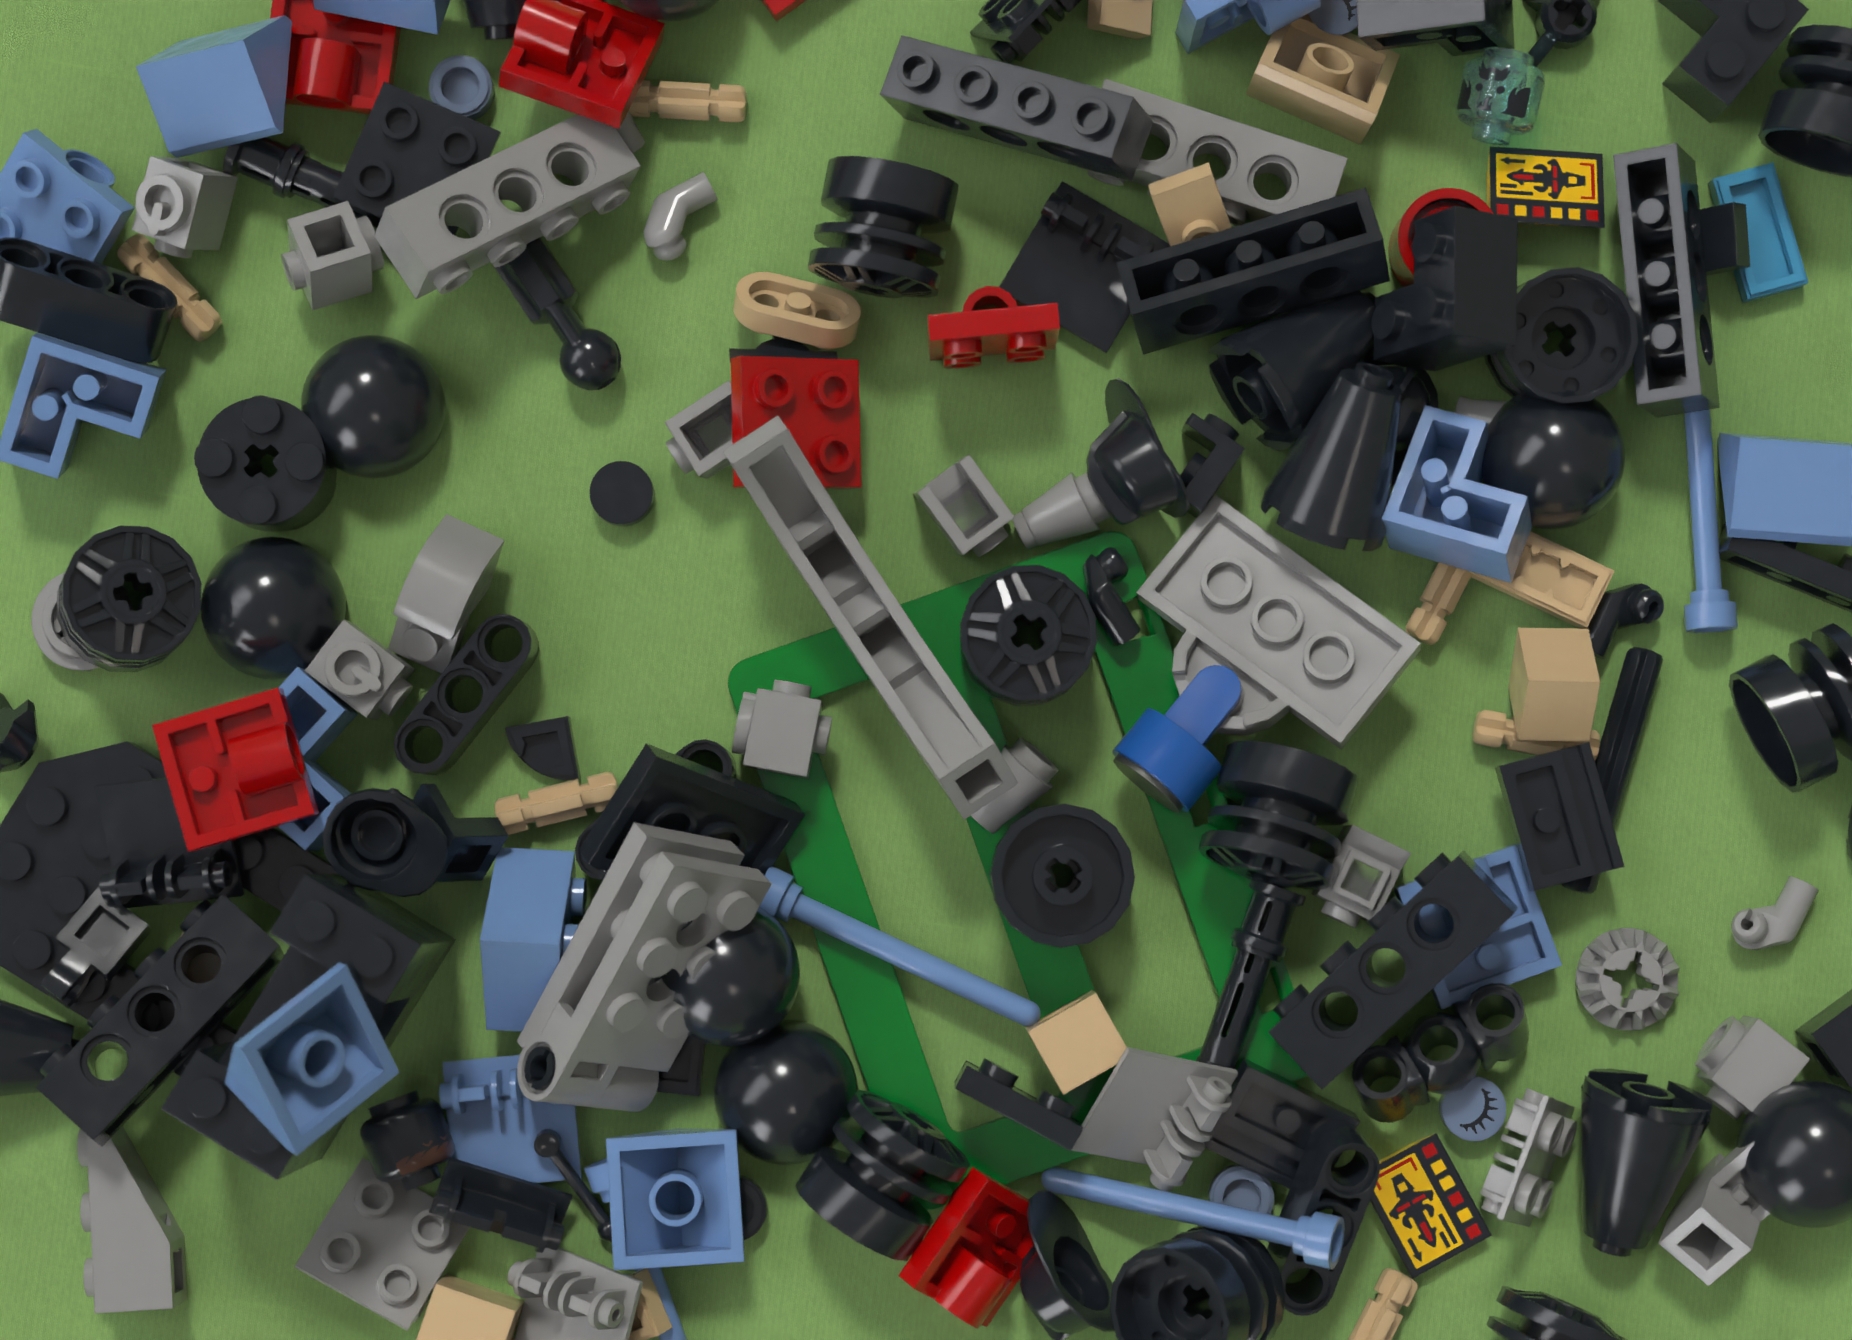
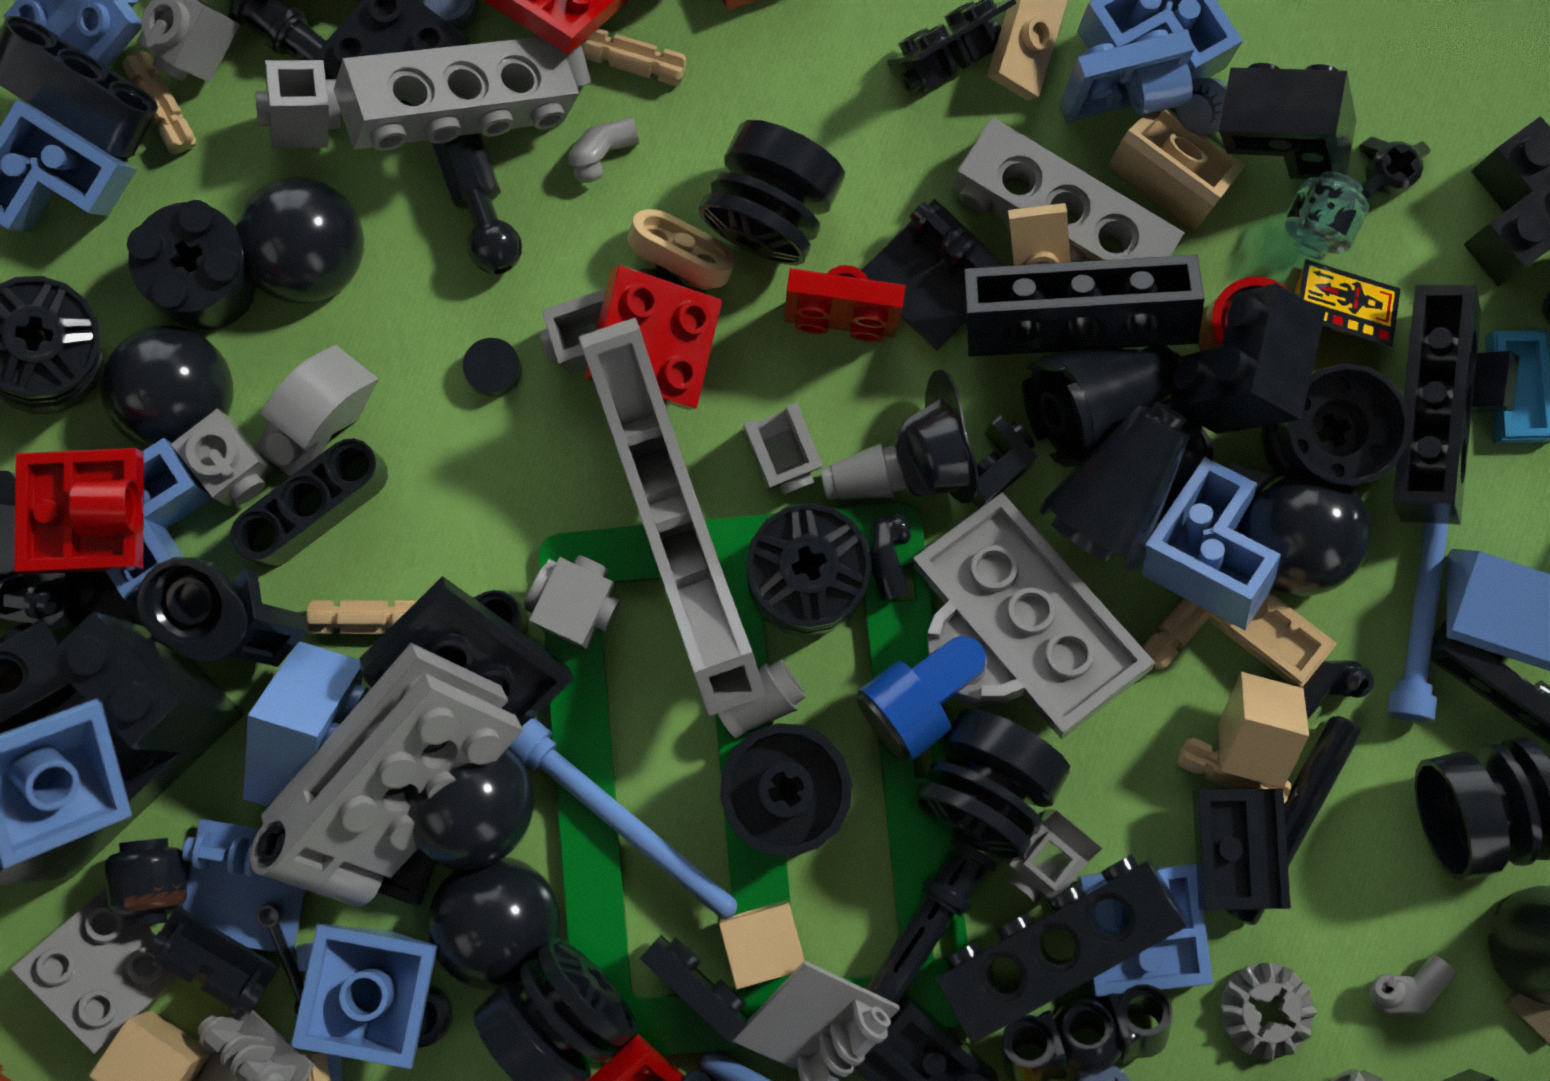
camera: 10 degrees right, 5 degrees down
(547, 747) = (369, 566): black tile -> none
(1017, 107) = (913, 120): black brick -> none

